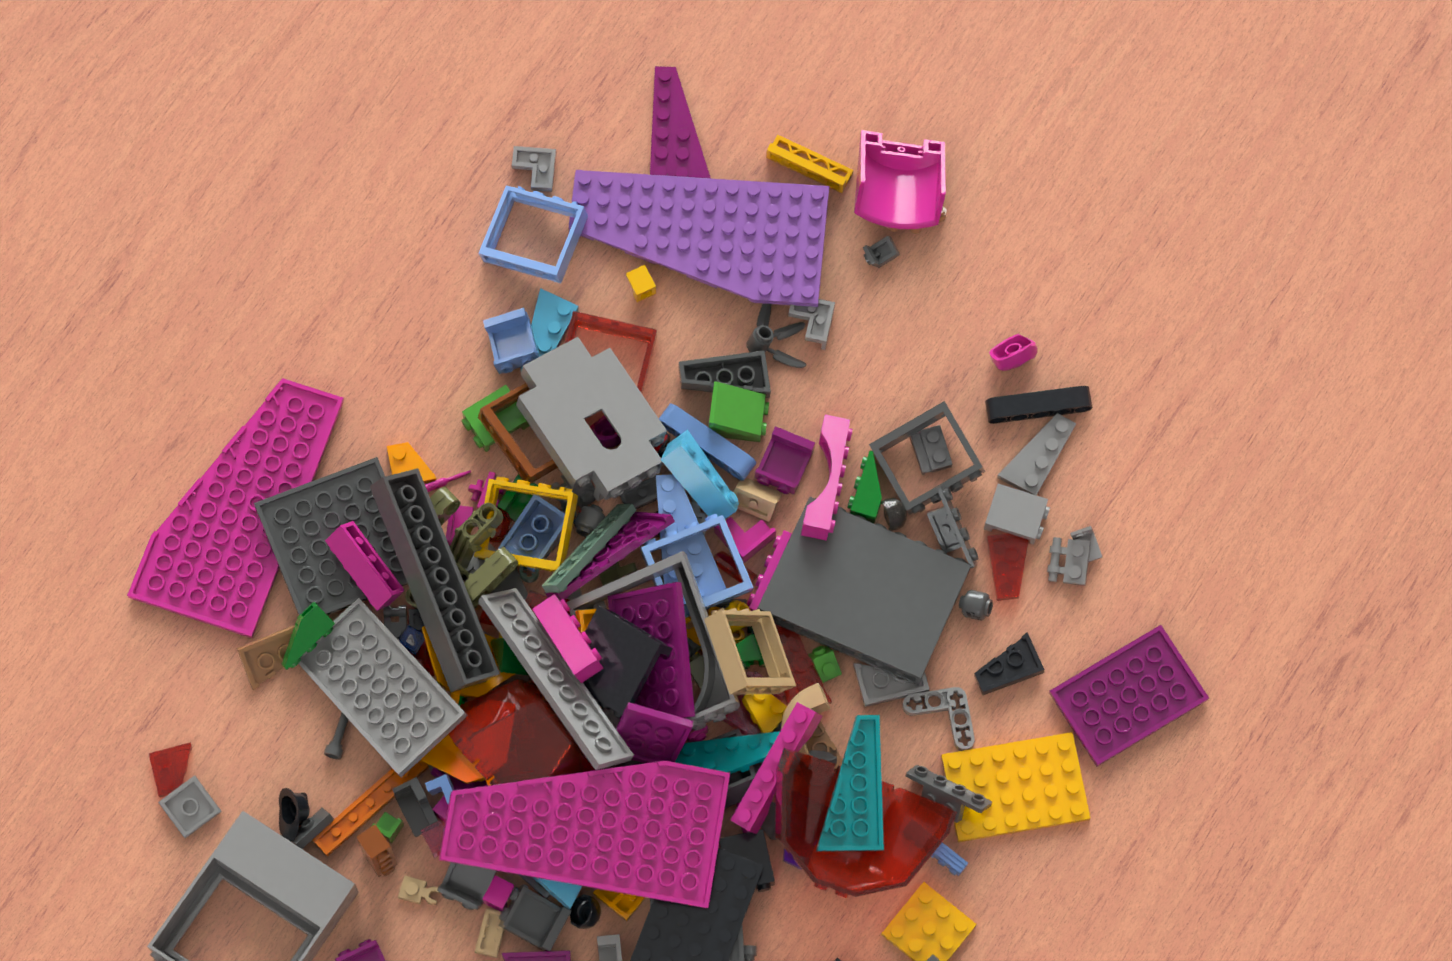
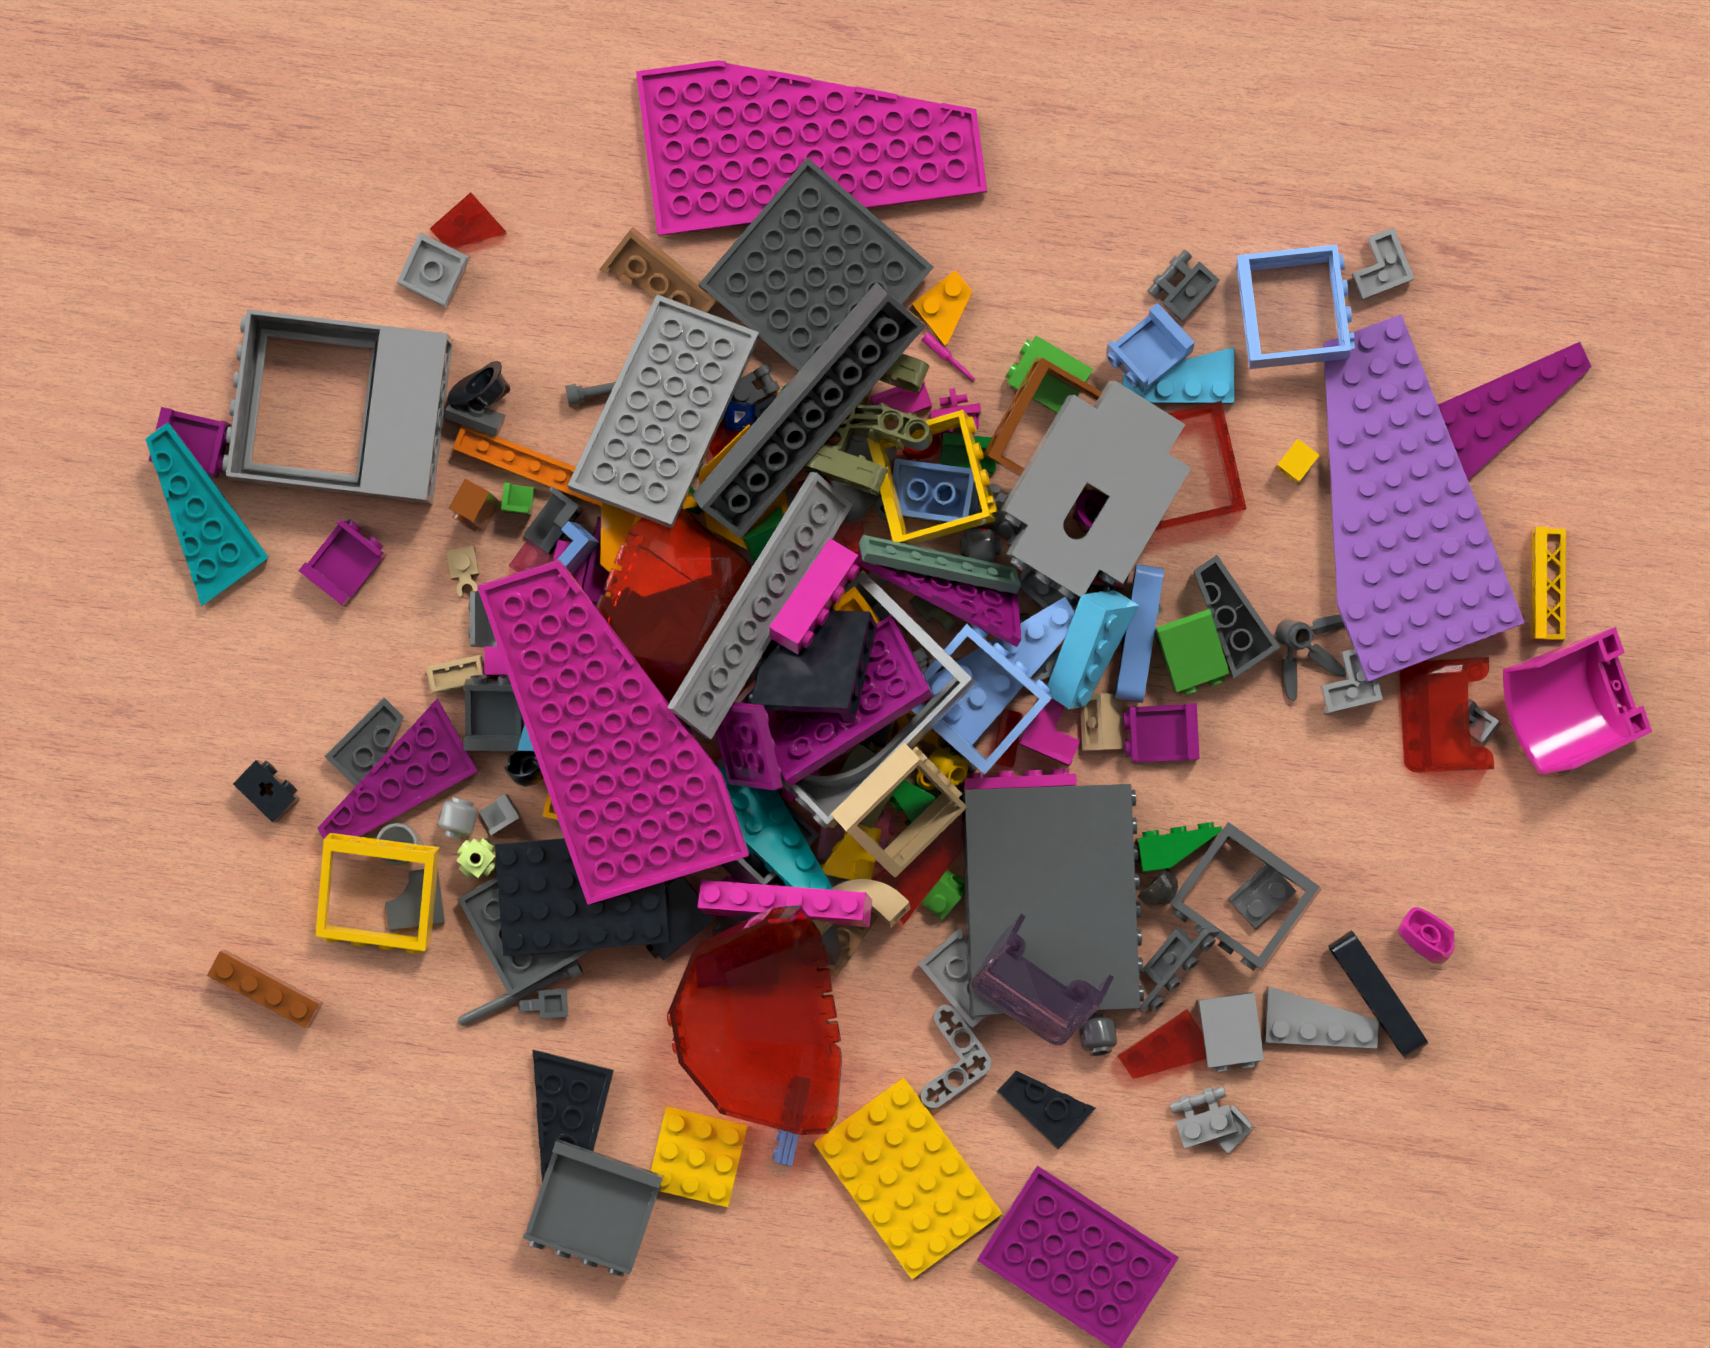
camera: 70 degrees right, 15 degrees up
(308, 629) = (692, 296): green slope -> none
(364, 565) = (795, 320): dark pink brick -> none
(486, 299) = (1189, 291): none -> dark grey plate
(818, 514) = (1213, 778): arch -> none
(856, 806) = (791, 1011): teal wing -> none
(865, 273) = (1438, 716): none -> clear red windscreen
(927, 630) = (1032, 994): none -> clear purple windscreen
(947, 792) = (858, 1106): dark grey bracket -> none

